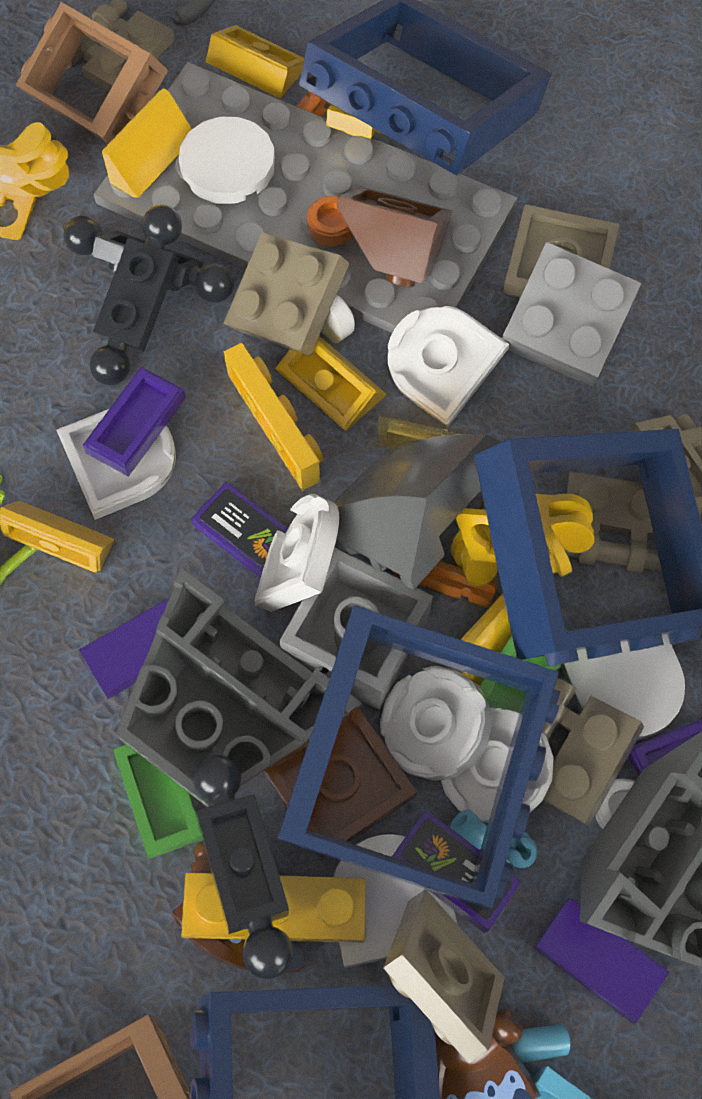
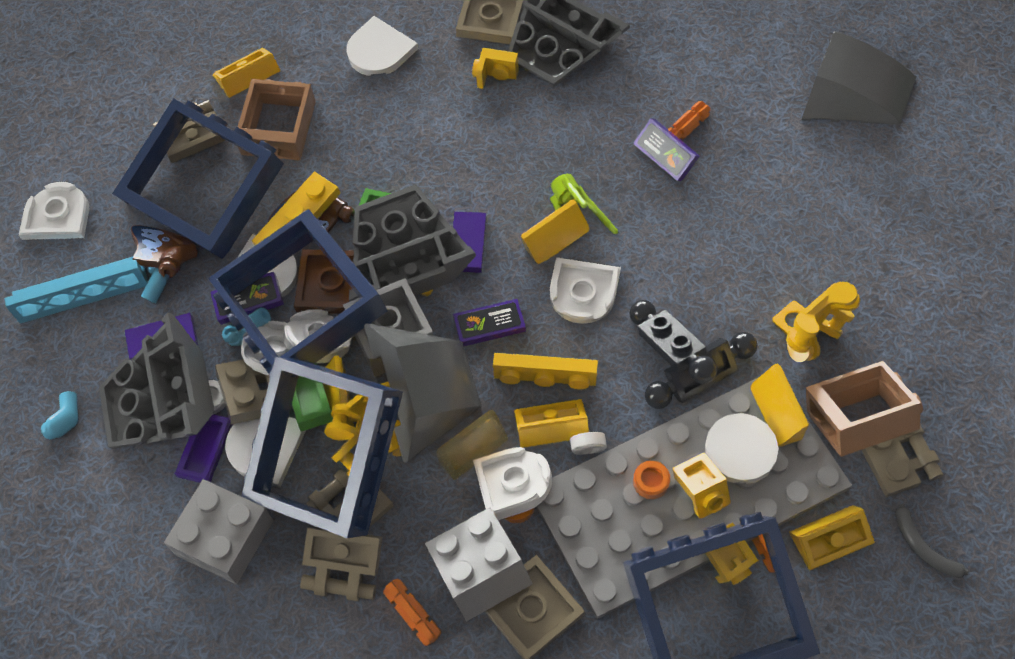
camera: 130 degrees right, 5 degrees down
(134, 421) = (593, 301): dark purple tile -> none
(243, 867) = (322, 200): black plate -> none
(286, 293) = (615, 419): dark tan plate -> none
(301, 164) = (703, 485): none -> yellow bracket
(301, 556) = (442, 315): white tile -> none
(395, 232) = (613, 502): slope -> none
(445, 976) = (201, 249): dark tan plate -> none
(664, 369) = (412, 612): none -> orange axle

